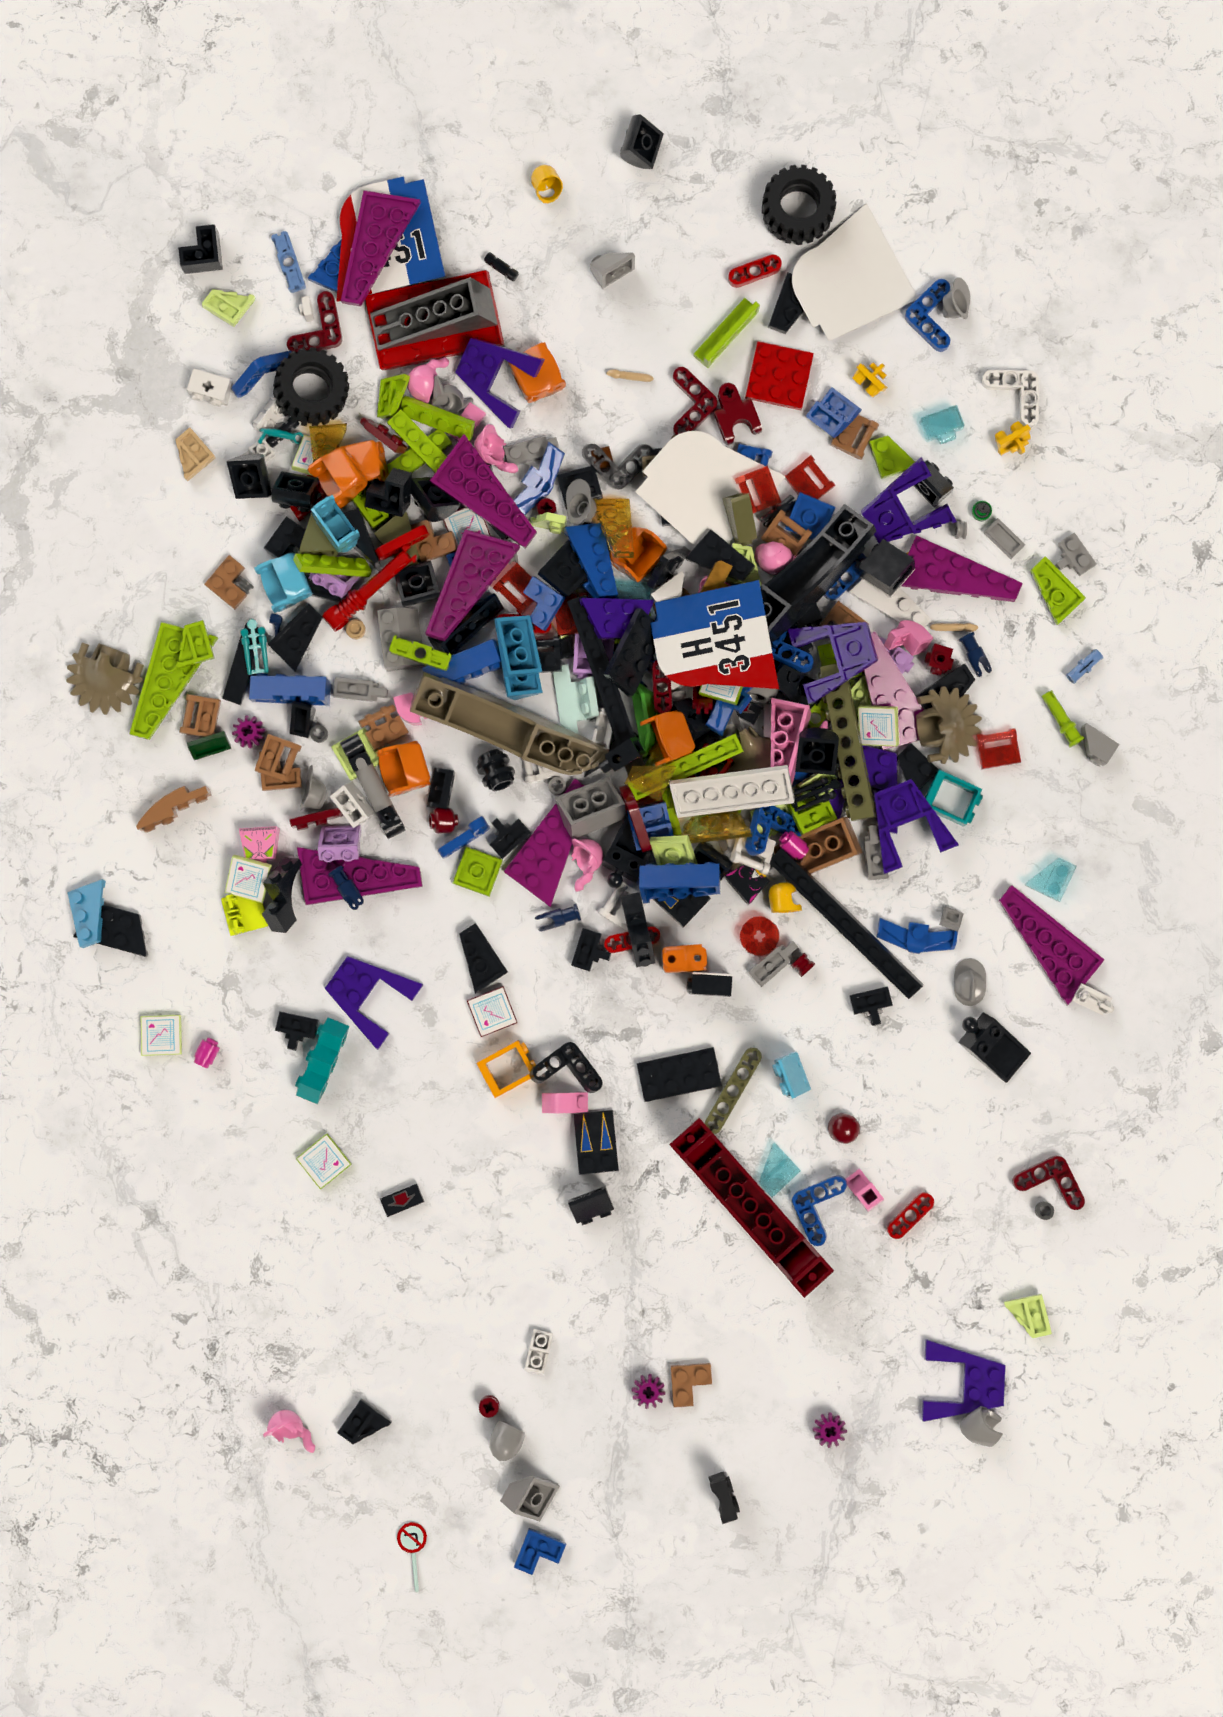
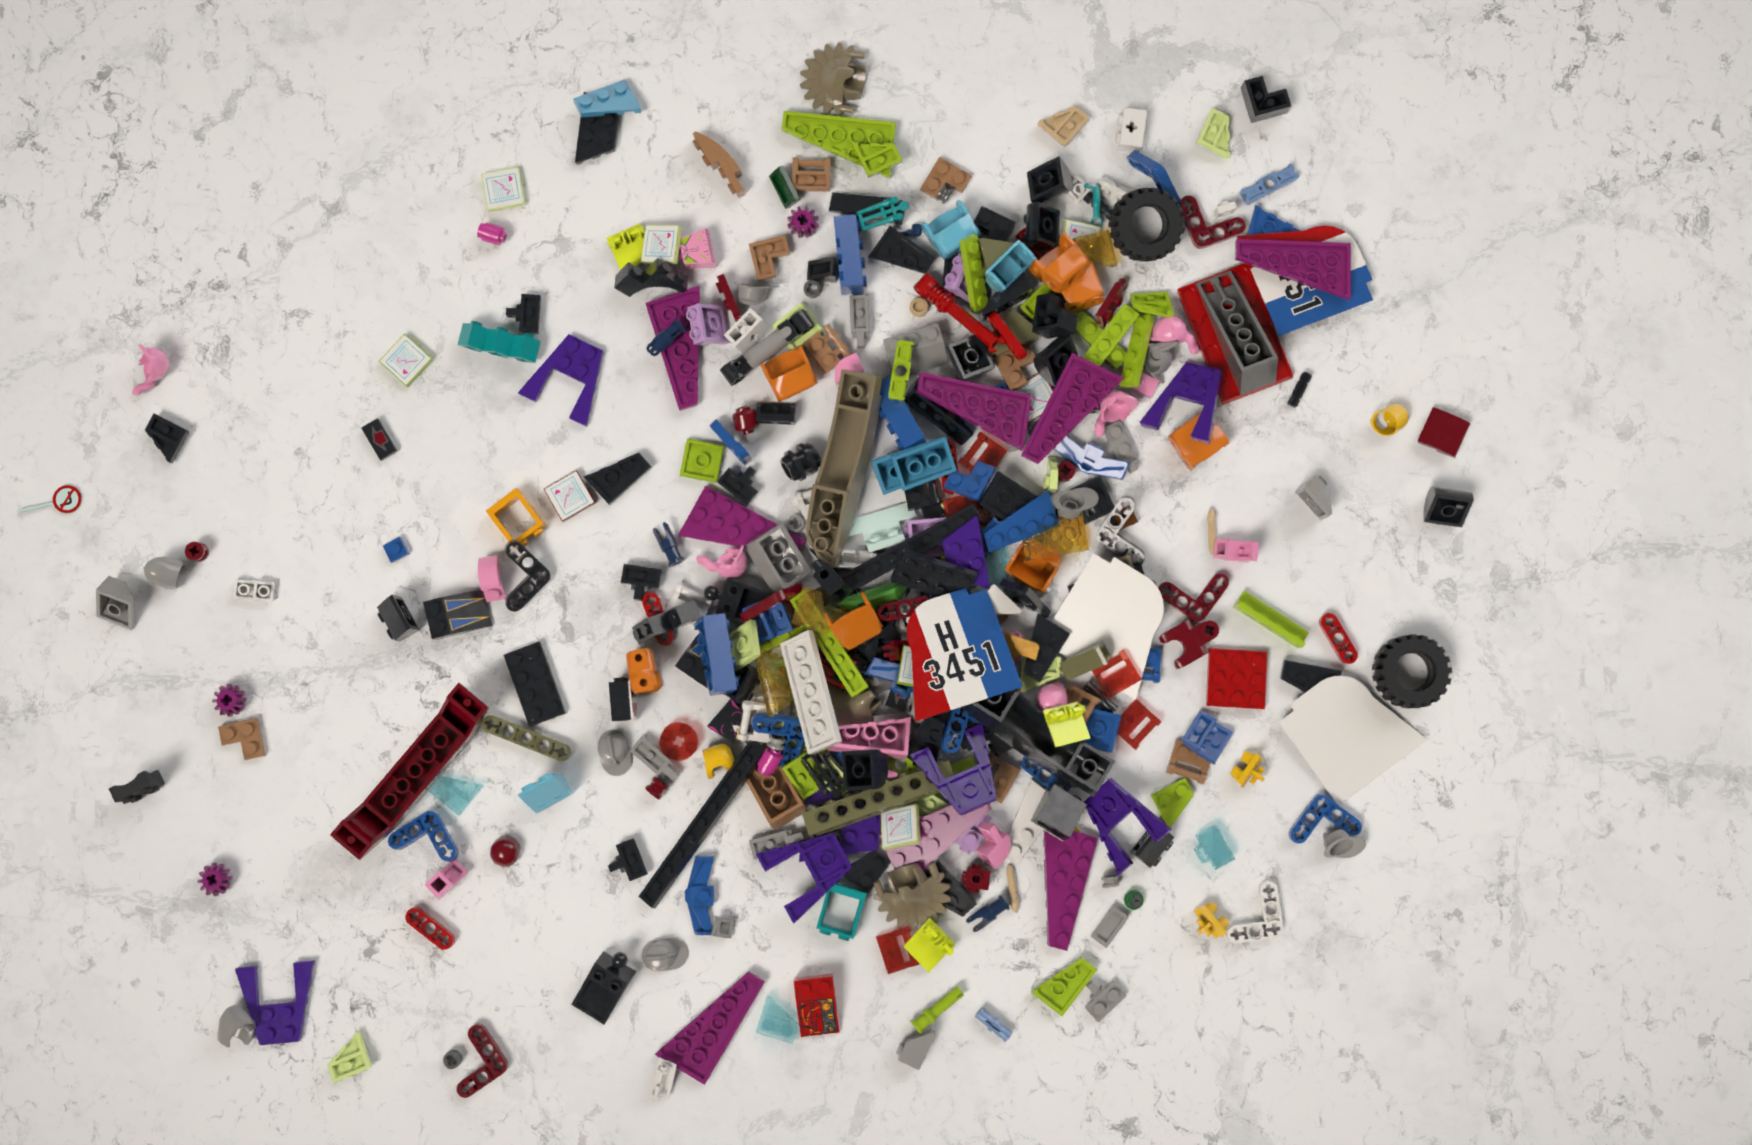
camera: 80 degrees right, 0 degrees up
(271, 756) = (783, 247): medium nougat plate -> none
(519, 1198) = (395, 549): none -> blue plate
(537, 1545) = (73, 619): blue plate -> none
(567, 134) = (1444, 432): none -> dark red slope
(653, 353) = (1236, 550): none -> bright pink brick
(760, 1003) = (614, 752): none -> light grey piece
(776, 834) = (776, 742): none -> light grey bush
(801, 544) = (1066, 724): none -> neon yellow hinge
(998, 716) = (929, 945): none -> neon yellow hinge
(1041, 837) = (816, 1005): none -> red slope

